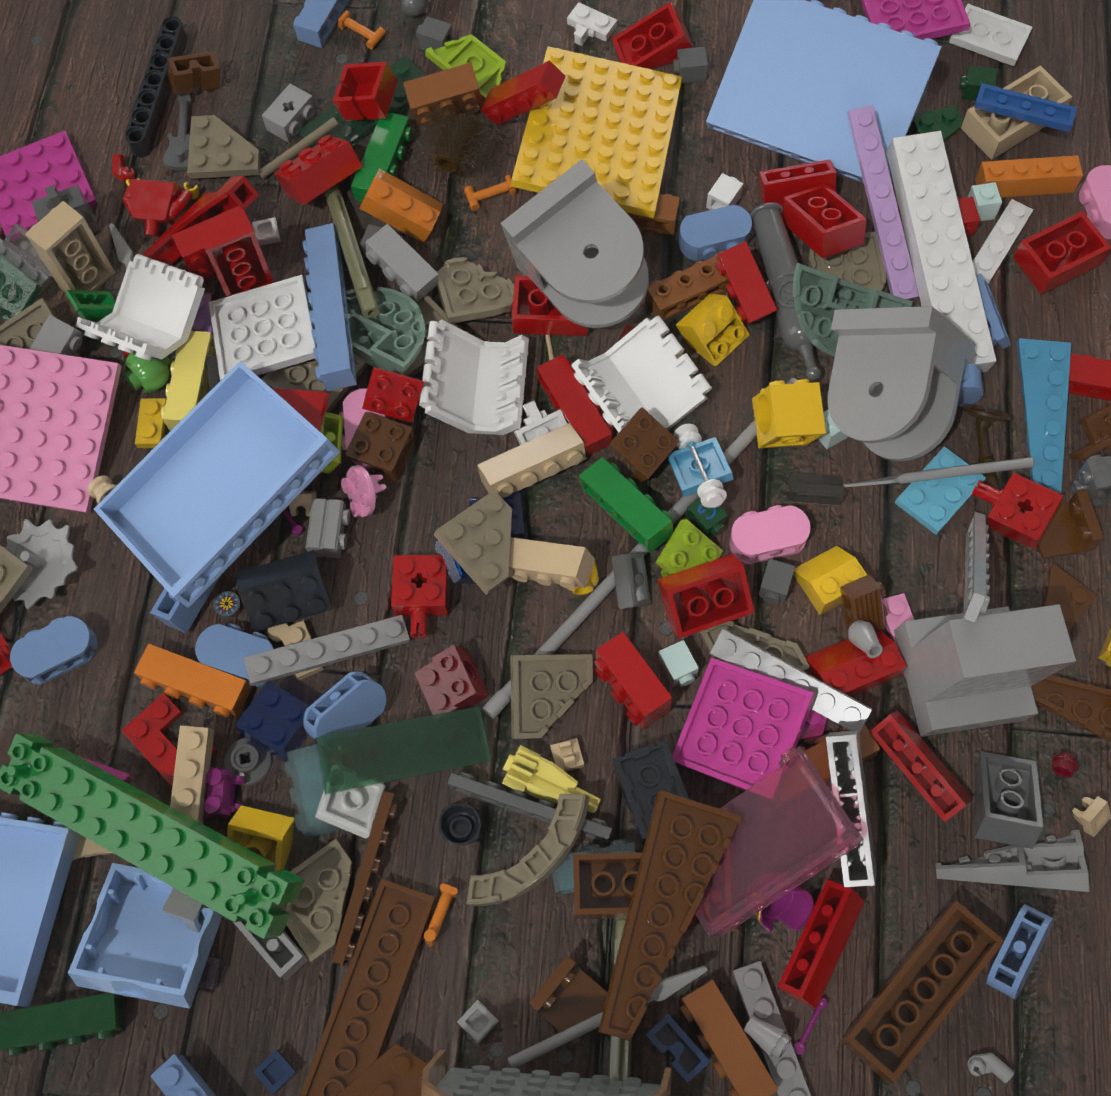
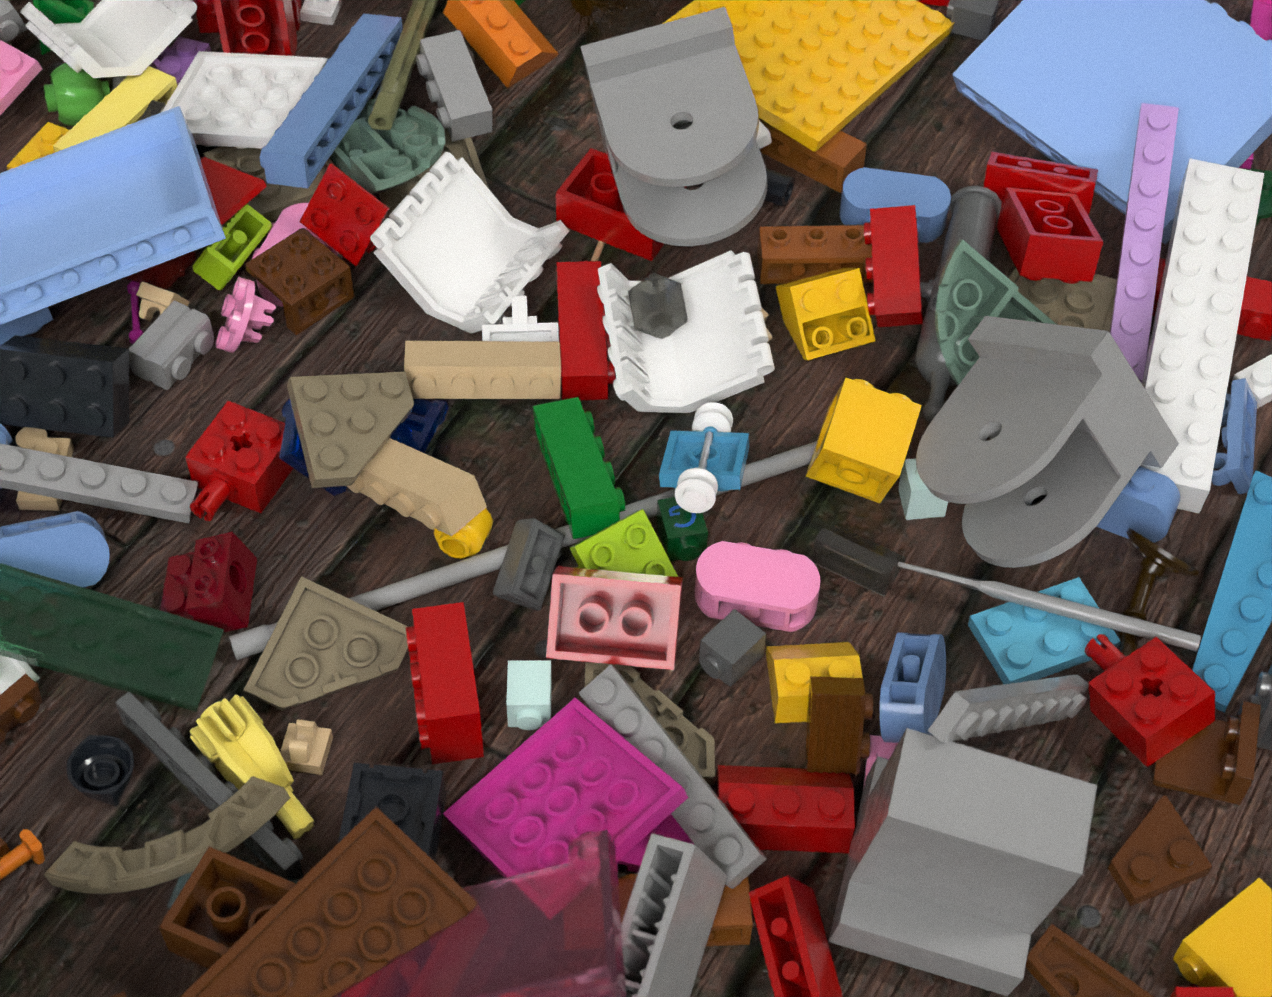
camera: 20 degrees right, 15 degrees down
(471, 292) = (527, 153): dark tan plate -> none
(618, 374) = (657, 306): none -> clear smoke brick
(643, 444) = (641, 402): reddish brown bracket -> none
(724, 193) = (935, 160): white brick -> none
(864, 637) = (811, 761): light grey cone -> none
(895, 564) = (912, 685): none -> medium blue brick

